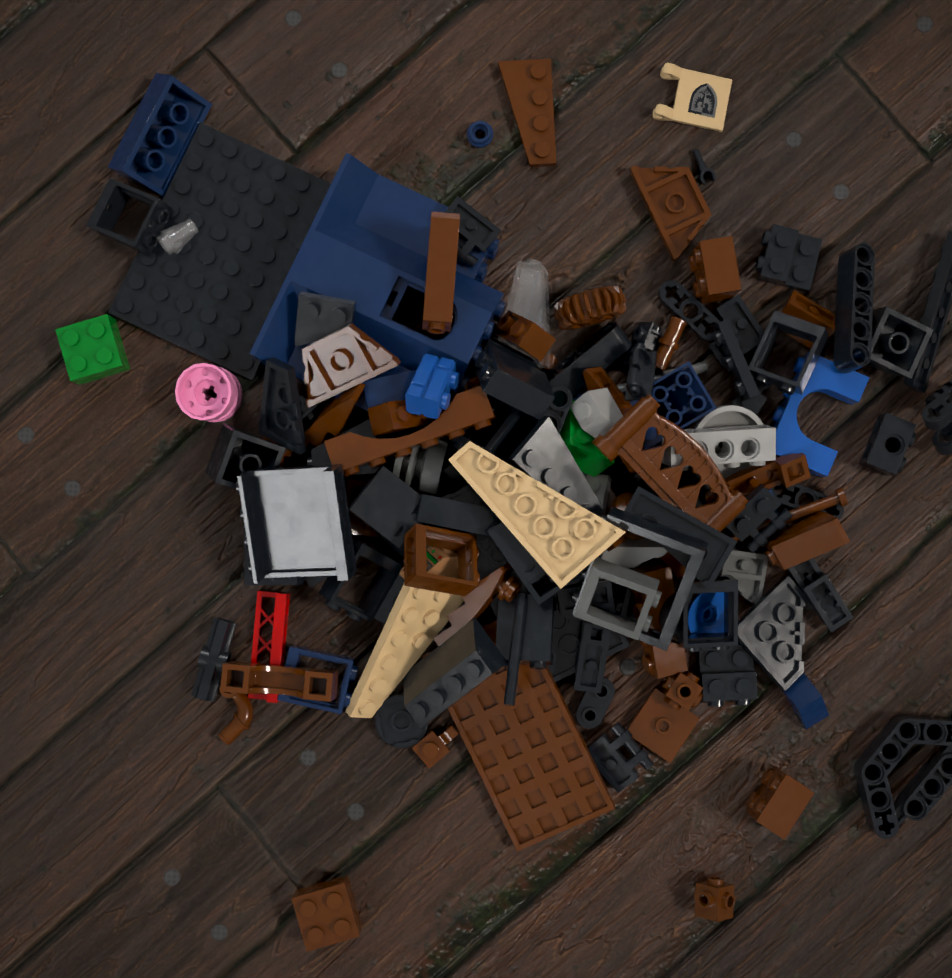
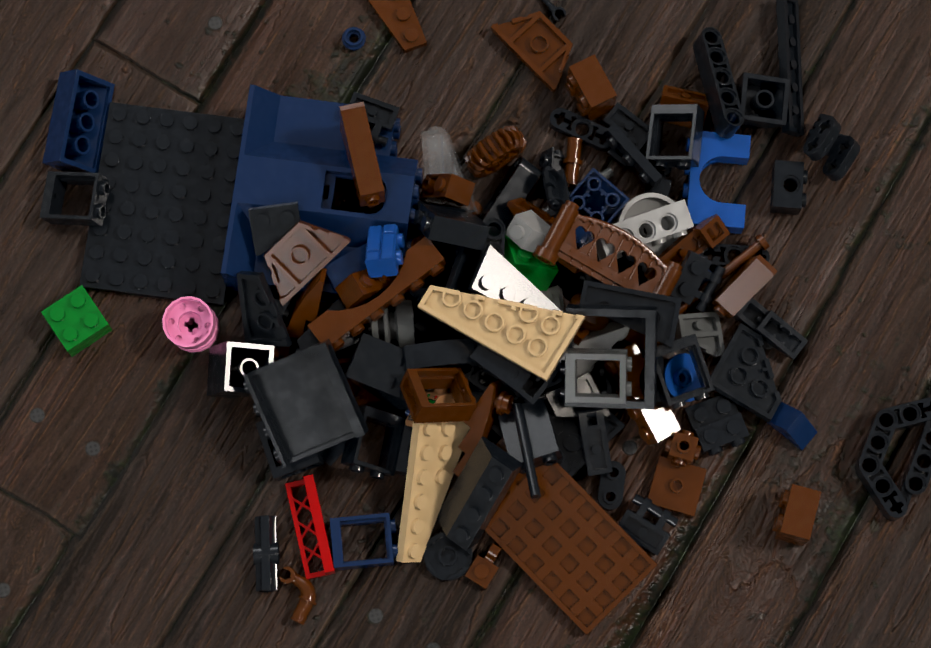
camera: 20 degrees left, 10 degrees down
(177, 236) = (121, 203): clear cone -> none
(277, 679) = (328, 547): reddish brown arch -> none
(714, 899) = (771, 619): reddish brown brick -> none
(788, 258) = (650, 60): black plate -> none

